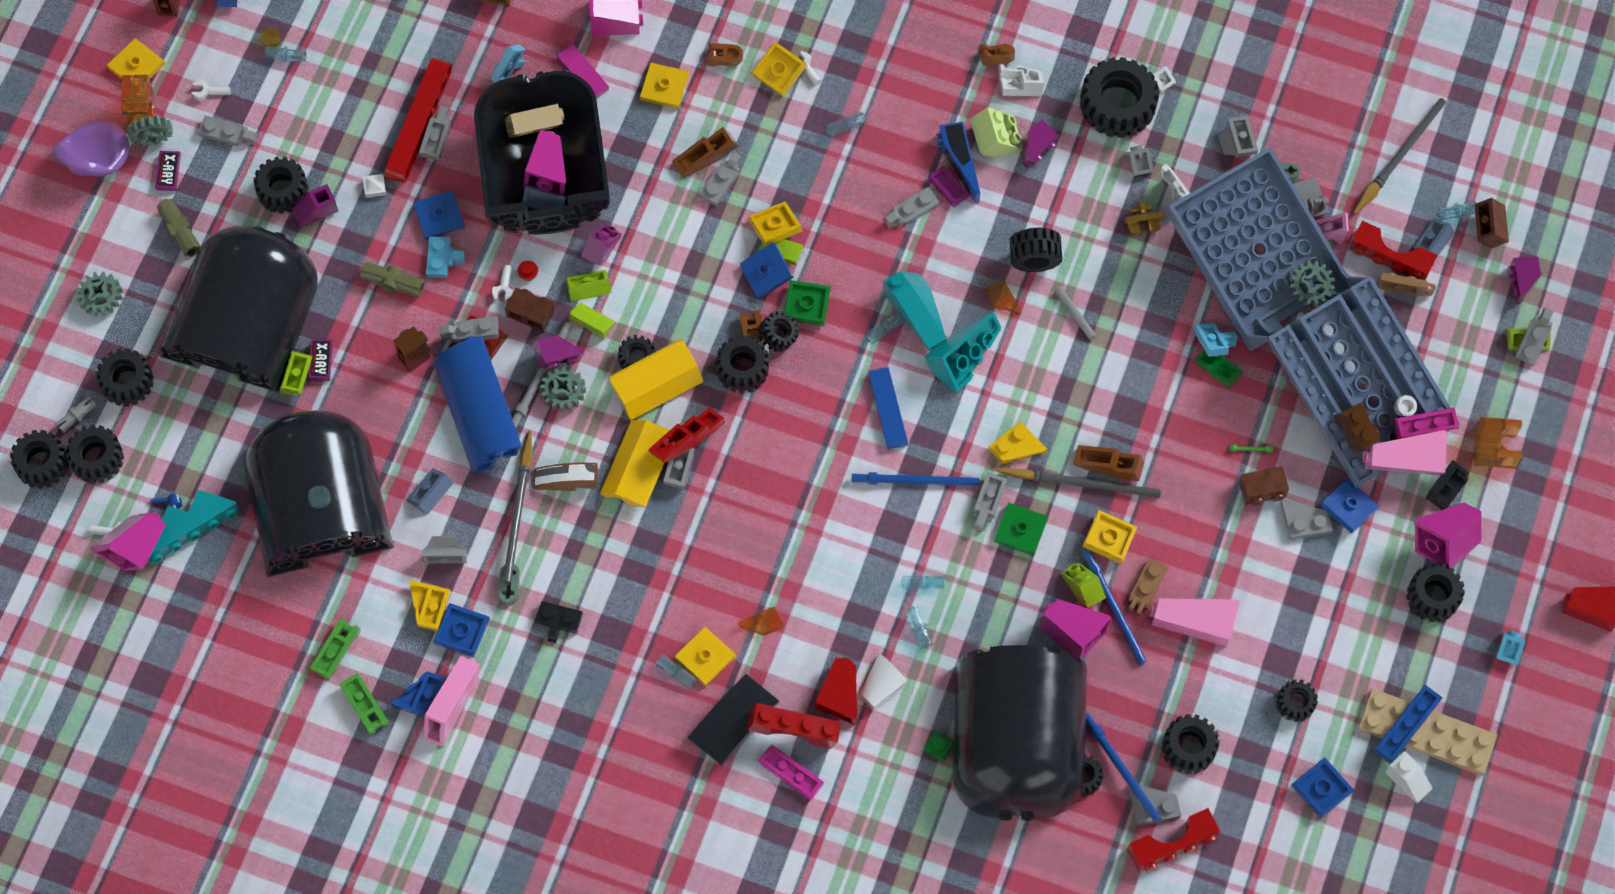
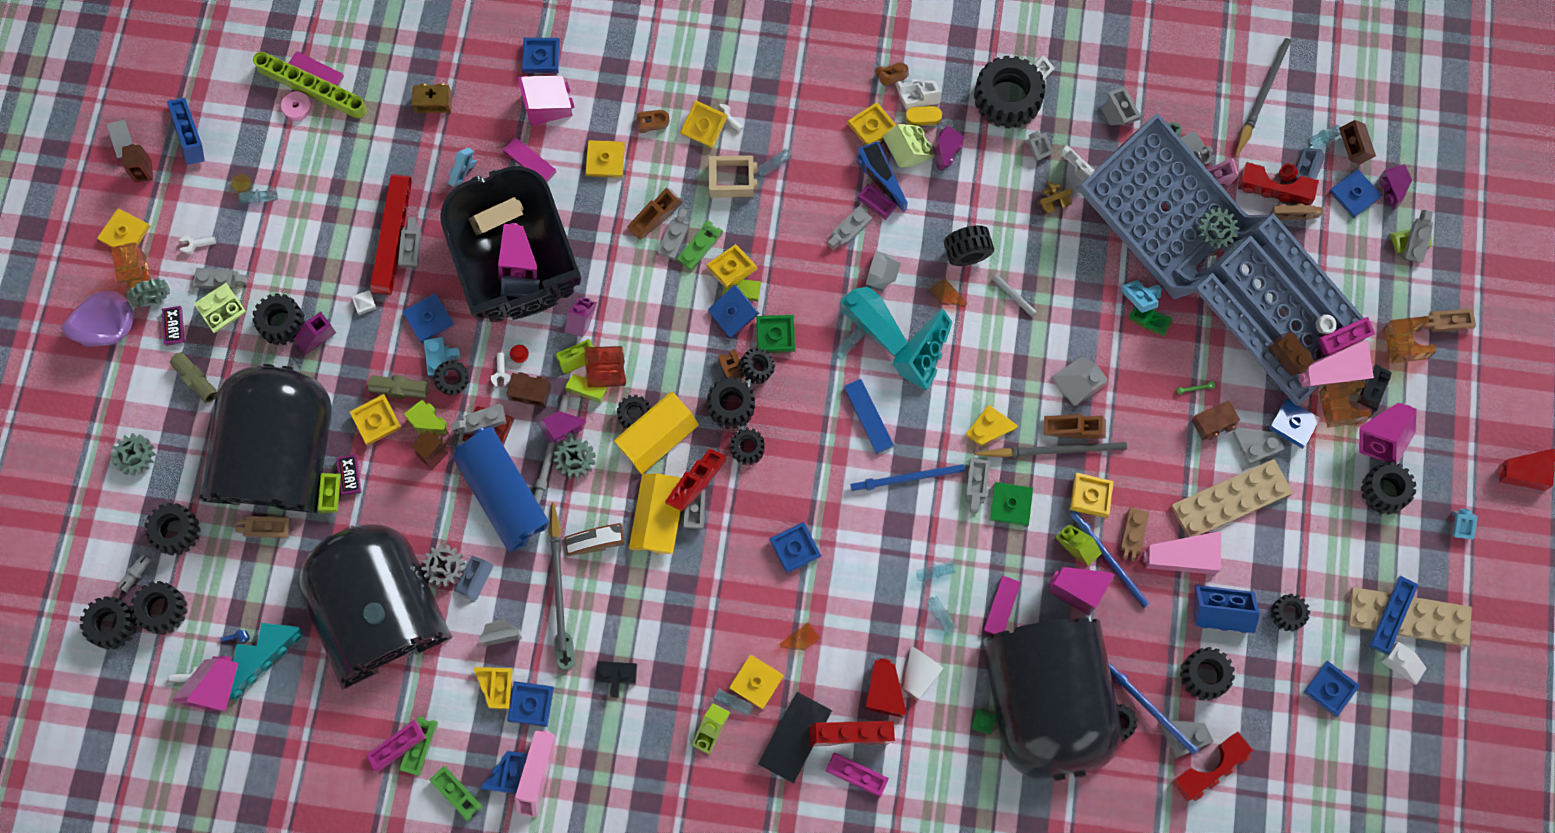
camera: 10 degrees left, 5 degrees up
(220, 395) = (264, 527): none -> medium nougat hinge
(221, 160) = (220, 308): none -> yellowish green slope
(311, 643) = (395, 746): none -> dark pink tile
(360, 308) = (375, 419): none -> yellow plate
(409, 467) = (449, 561): none -> light grey gear
(411, 313) = (423, 419): none -> lime slope
(441, 289) = (459, 369): none -> black tyre
(616, 301) = (605, 366): none -> clear red slope
(646, 692) = (710, 728): none -> lime slope
(745, 196) = (699, 246): none -> bright green plate
(750, 401) = (744, 435): none -> black tyre
(777, 527) = (795, 547): none -> blue plate
(793, 144) = (731, 190): none -> tan window
(936, 260) = (882, 271): none -> light grey slope
(961, 103) = (871, 124): none -> yellow plate
(987, 629) = (1002, 605): none -> dark pink tile
(1020, 105) = (924, 115): none -> yellow tile
(1126, 416) = (1080, 380): none -> light grey slope
(1226, 683) = (1225, 609): none -> blue slope
(1263, 571) = (1231, 499): none -> tan plate
(1399, 498) = (1336, 405): none -> clear orange piece
(1408, 241) = (1288, 172): none -> red plate
(1478, 278) = (1355, 193): none -> blue plate
(1549, 432) = (1451, 320): none -> medium nougat hinge

